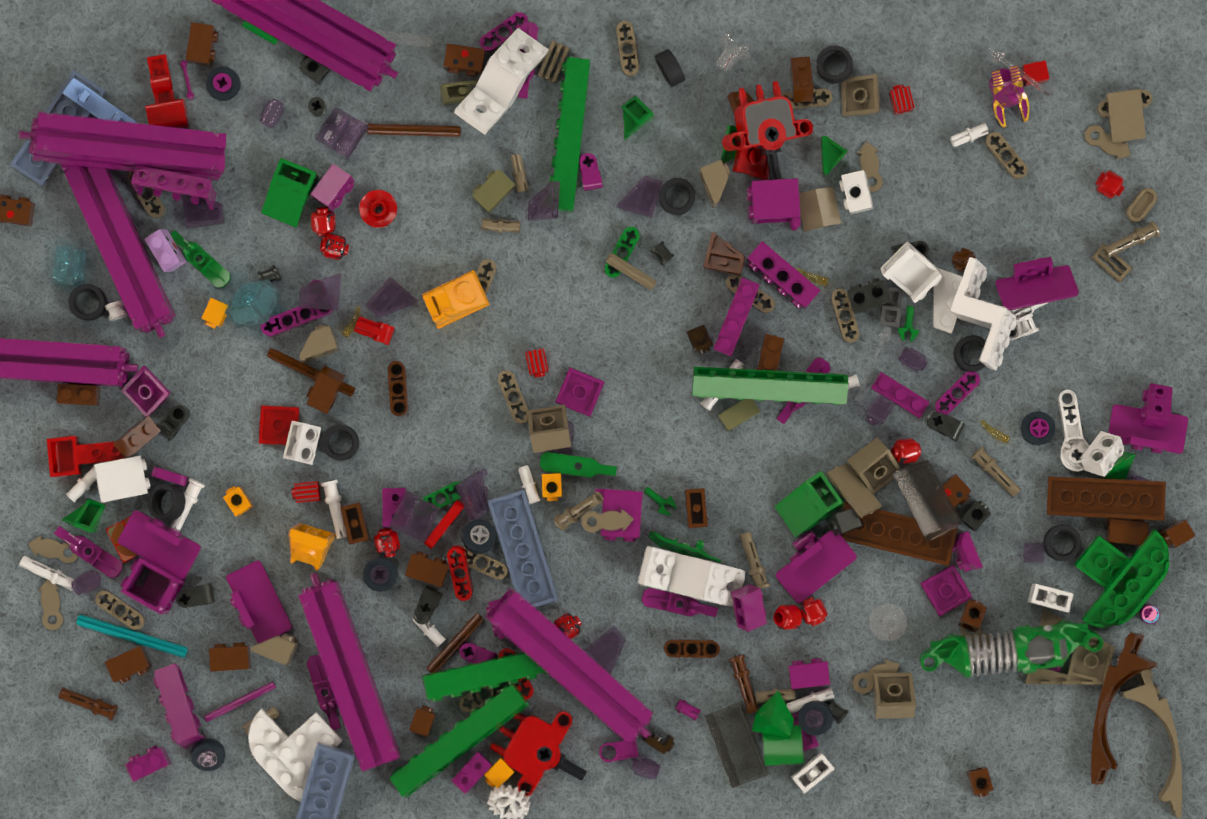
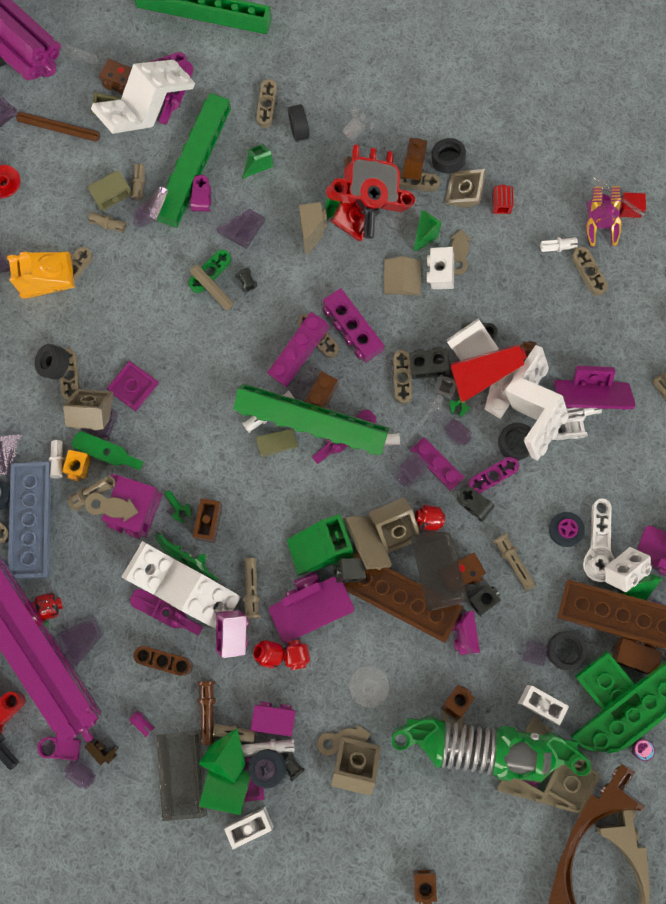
camera: 20 degrees right, 10 degrees down
(485, 393) = (55, 354): none -> black tyre
(537, 363) = (100, 348): red brick -> none
(559, 46) = (202, 89): dark tan tile -> none
(677, 182) = (274, 247): black tyre -> none
(699, 339) = (258, 365): dark brown bracket -> none
(723, 257) = (301, 296): reddish brown wing -> none
(774, 202) = (361, 256): magenta container -> none
(818, 279) = (383, 337): clear yellow helmet -> none
(927, 293) = (482, 371): none -> red slope
(946, 590) = (437, 669): magenta tile -> none
(1000, 436) = (523, 524): clear yellow helmet -> none

